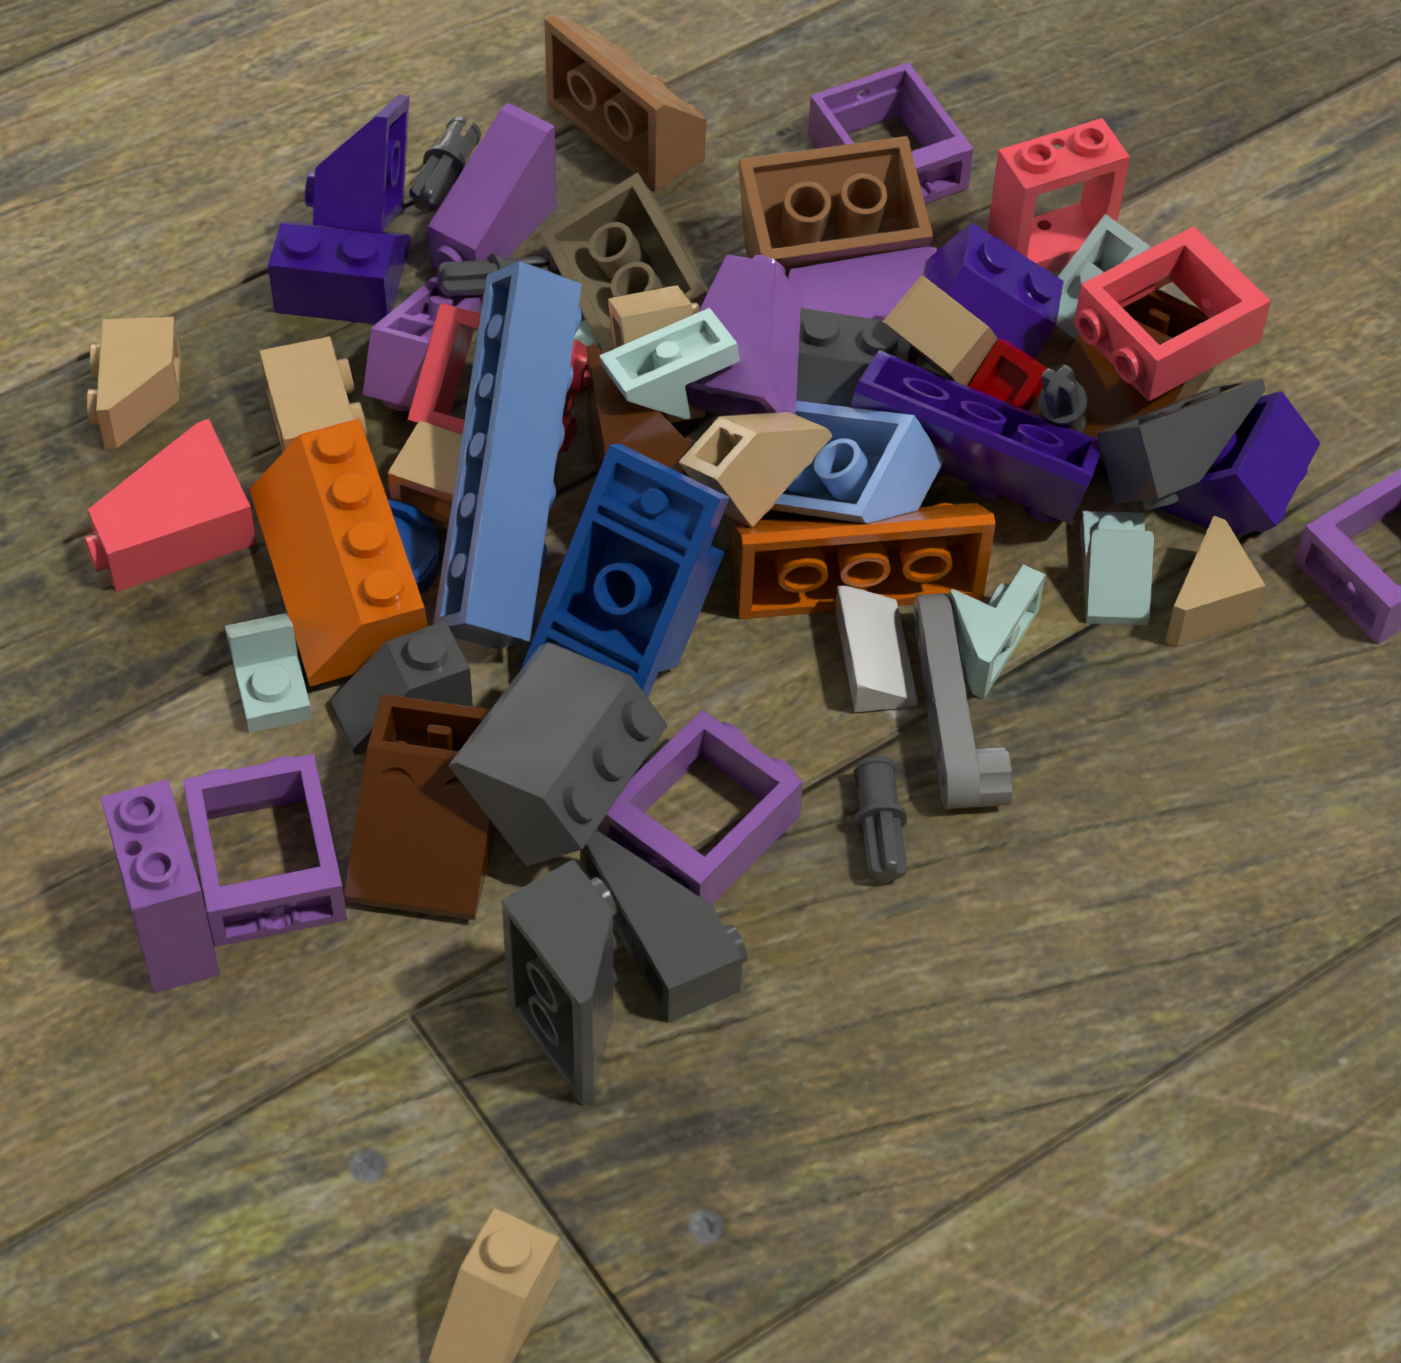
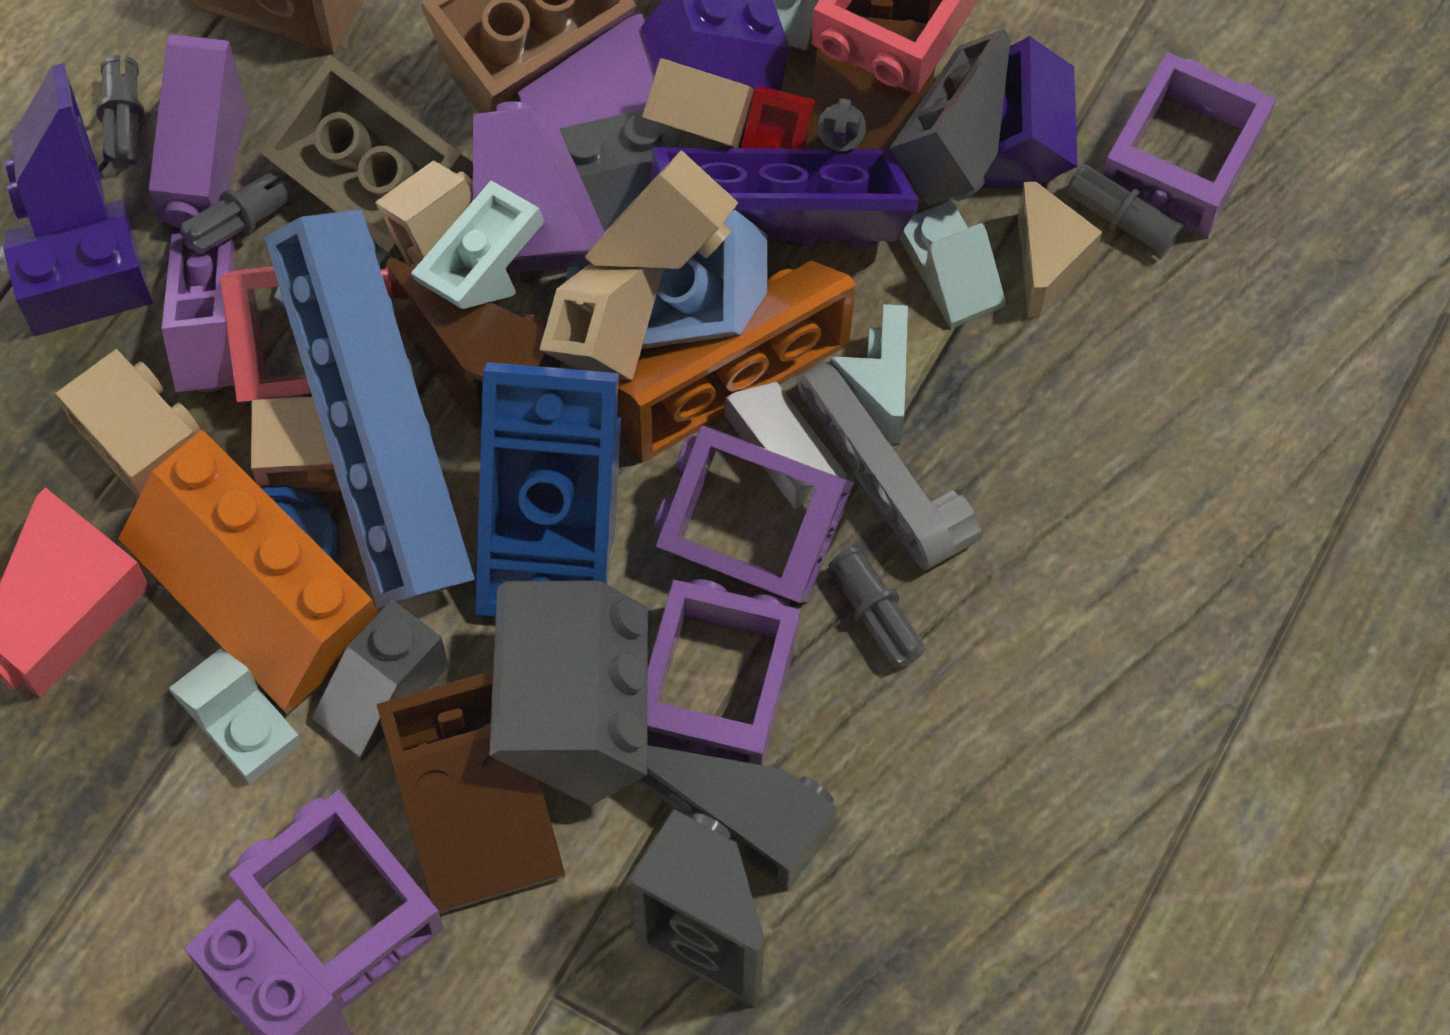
camera: 25 degrees left, 10 degrees up
(845, 393) = (668, 221): none -> tan slope
(848, 729) = (812, 539): none -> medium lavender window
(1305, 584) = (1124, 209): none -> dark grey axle

